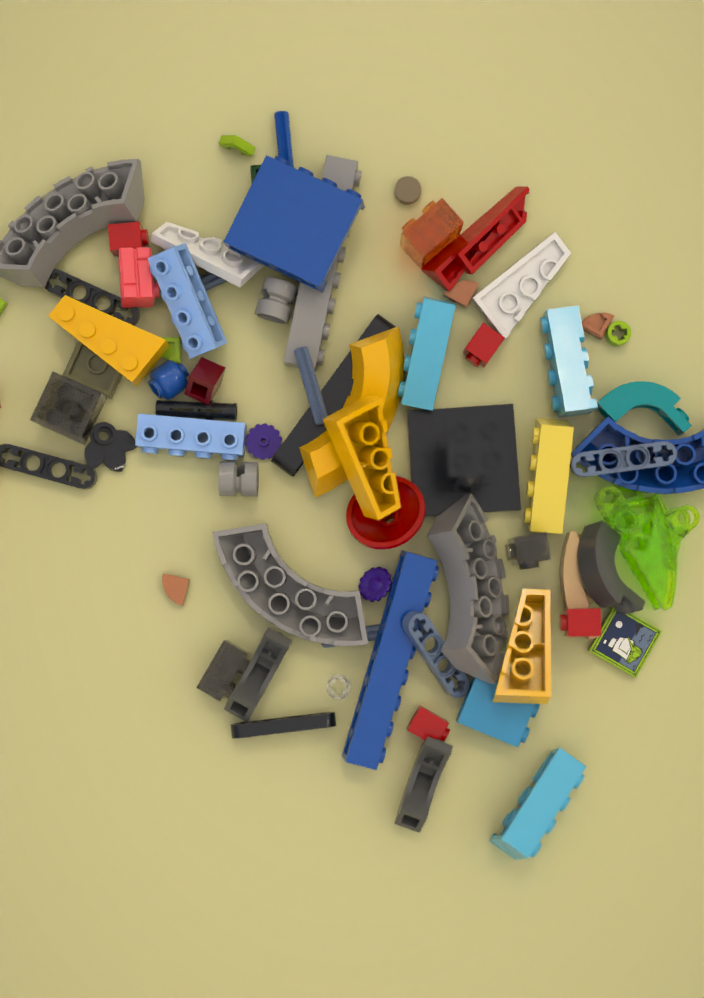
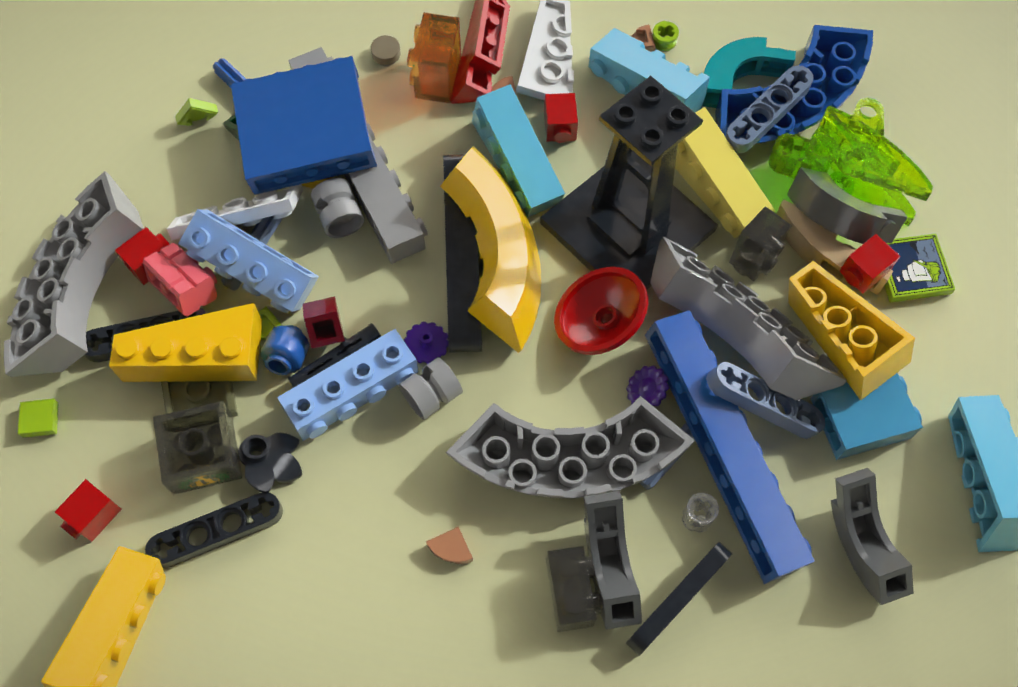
camera: 40 degrees left, 20 degrees down
(311, 384) = (433, 247): sand blue axle -> none
(364, 453) = (542, 260): yellow wedge -> none
(429, 724) = (815, 480): red brick -> none

